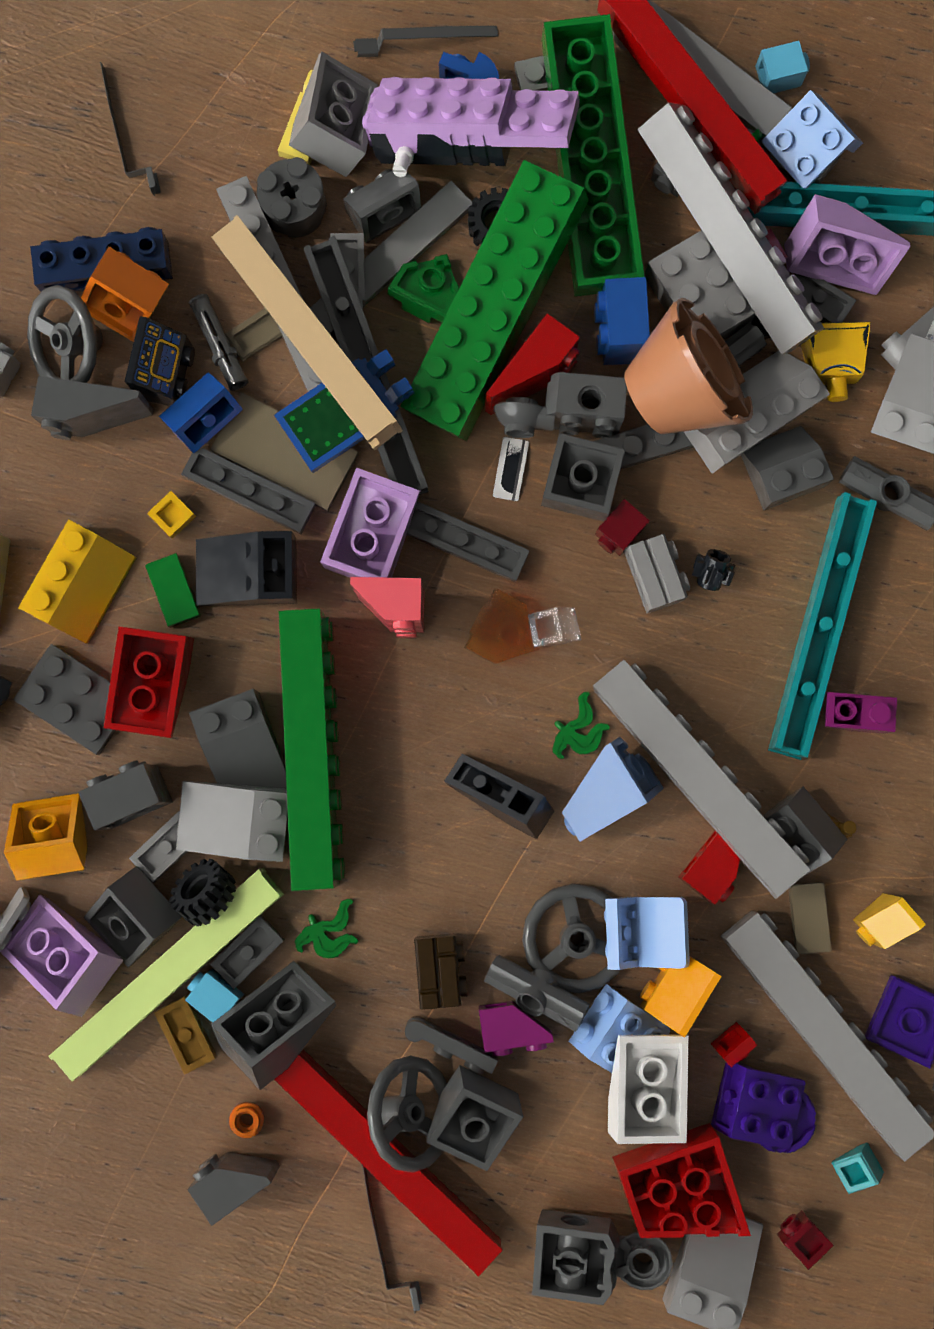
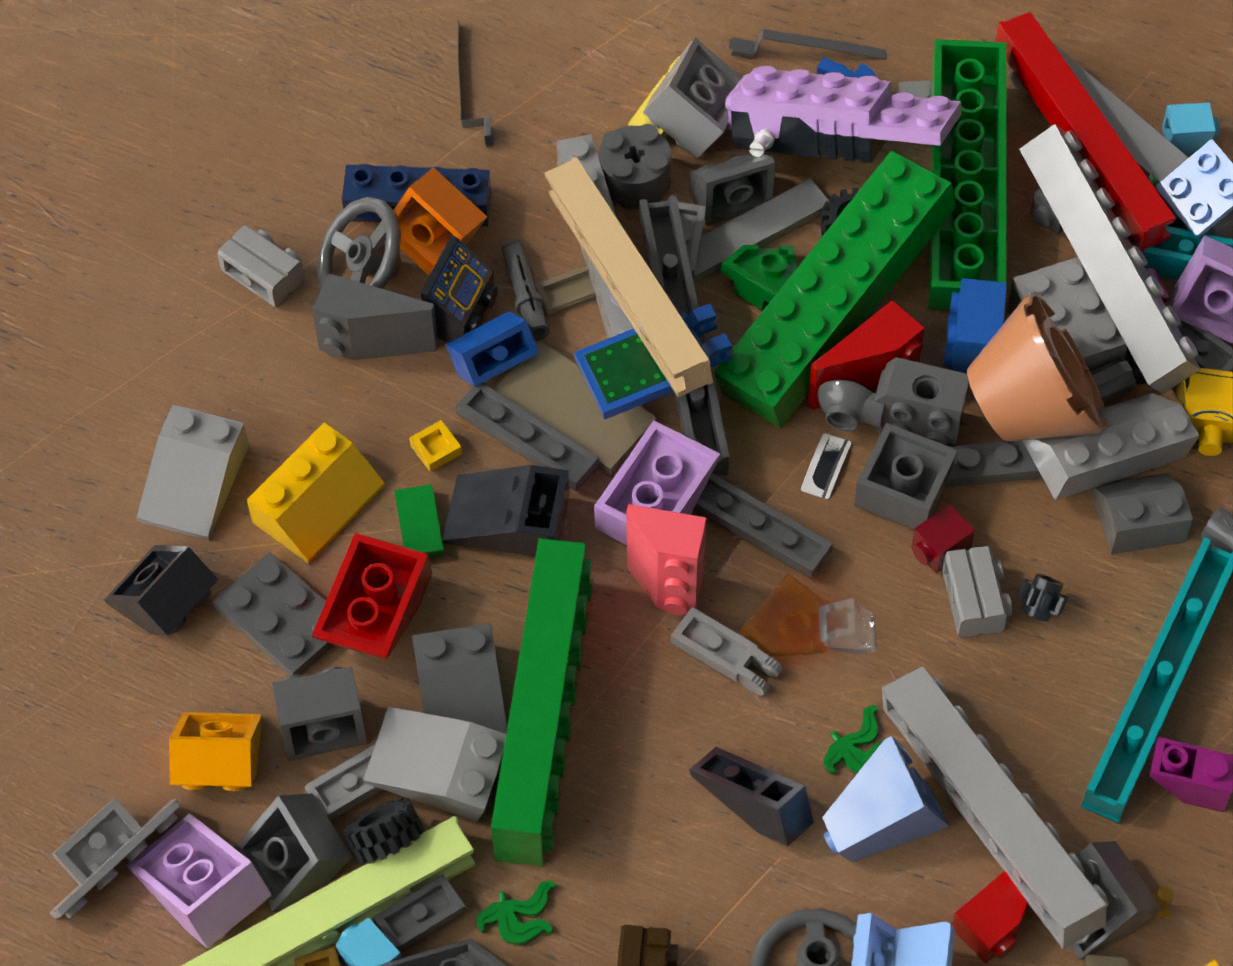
camera: 10 degrees right, 25 degrees down
(452, 665) = (724, 650): none -> light grey hinge

